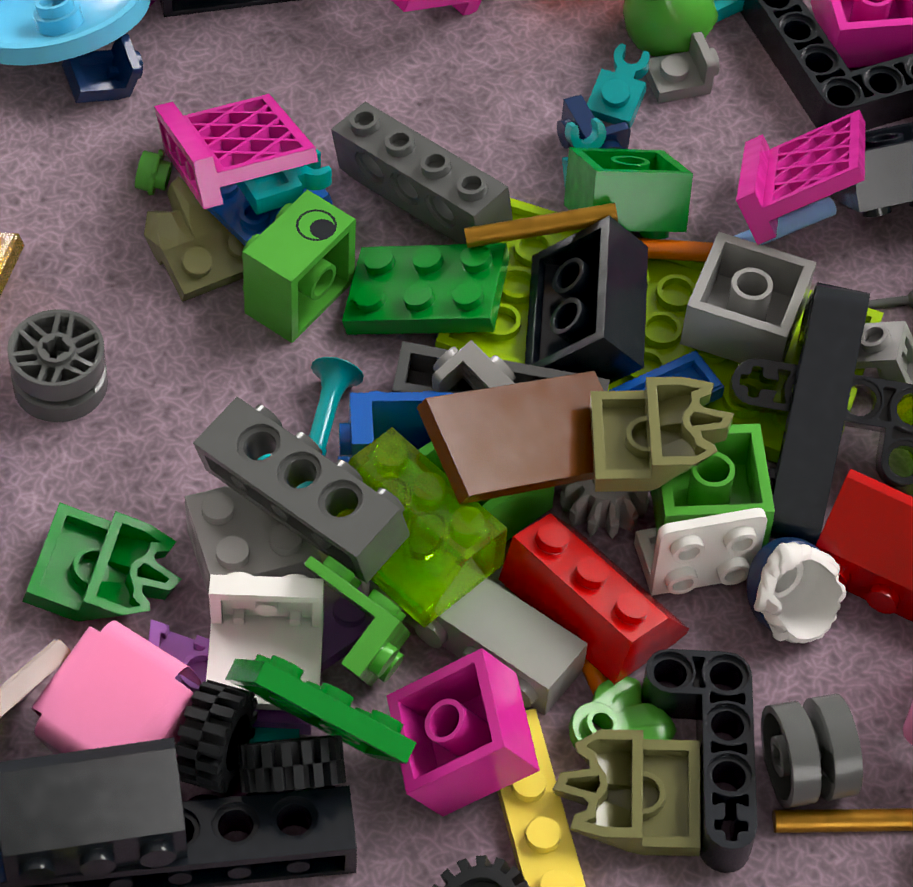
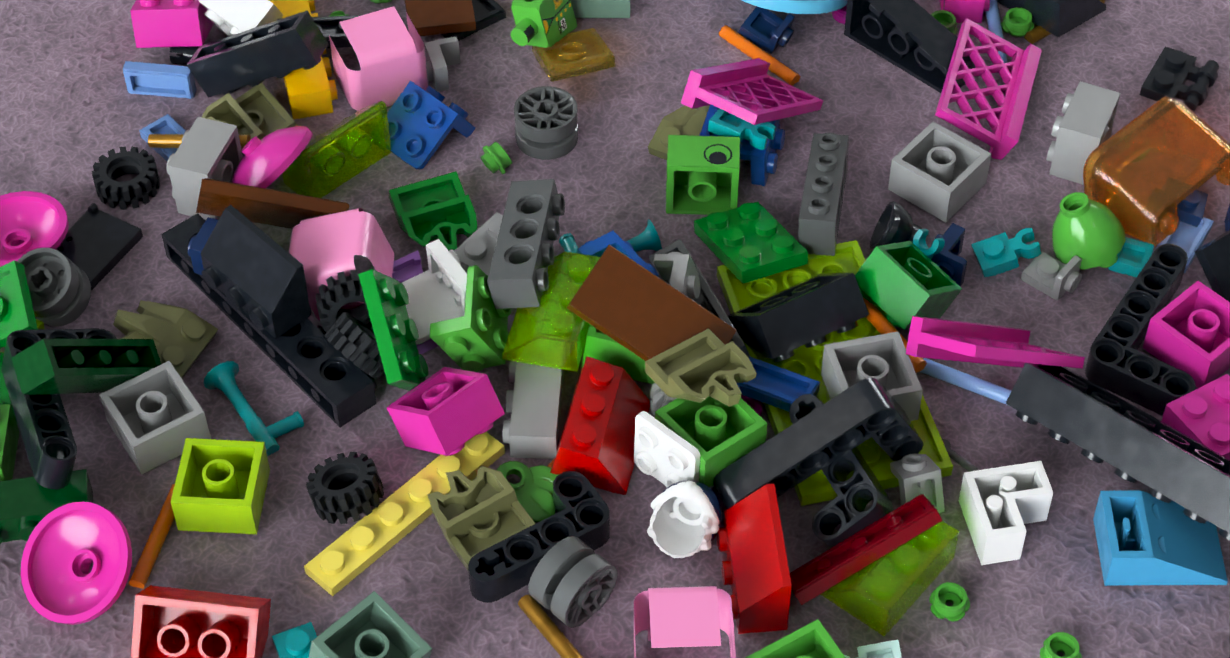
camera: 60 degrees right, 5 degrees down
(59, 452) = (495, 158): none -> bright green plate
(122, 108) = (755, 52): none -> orange bar
(473, 64) = (939, 171): none -> light grey brick
(514, 155) = (893, 226): none -> black piece
(538, 225) = (826, 253): pearl gold bar -> none

